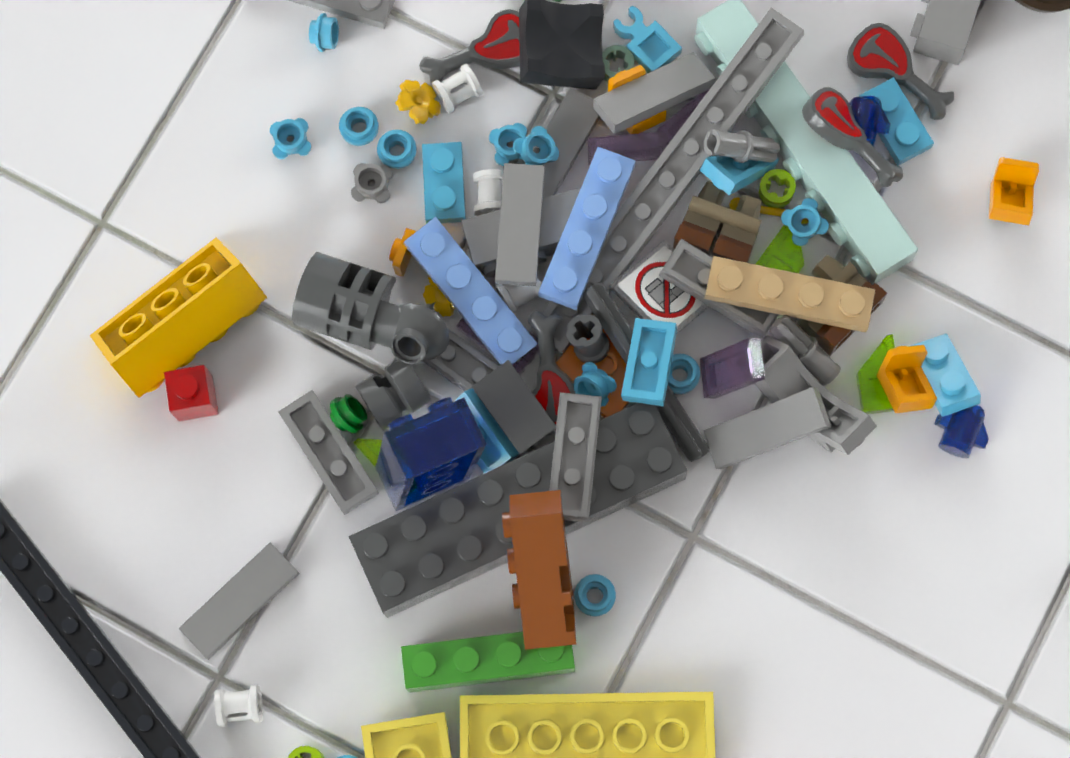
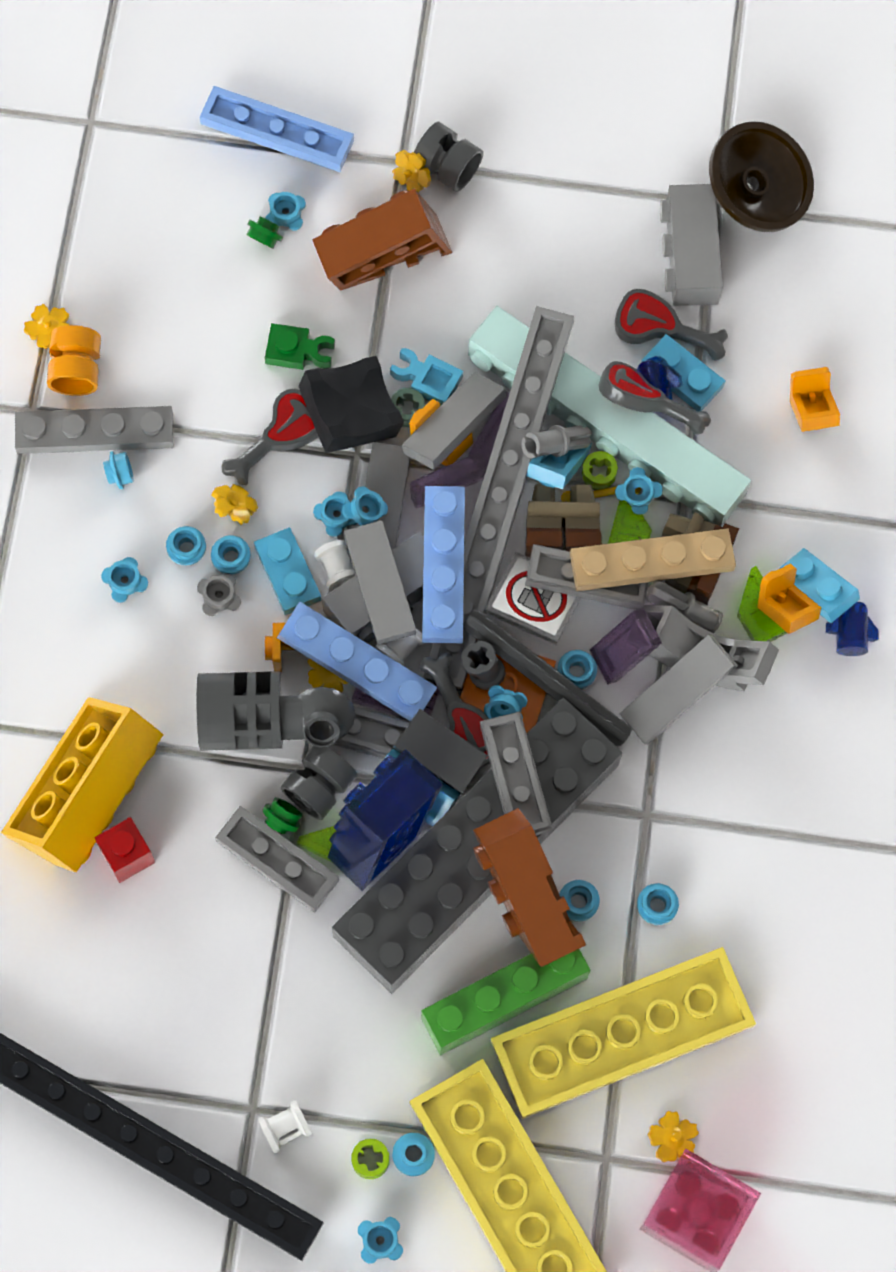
camera: 30 degrees left, 5 degrees down
(239, 601) = (245, 1029): light grey tile -> none
(466, 77) = (279, 472): white bush -> none
(649, 362) = (550, 665): medium azure plate -> none
(668, 613) = (661, 892): none -> medium azure plate

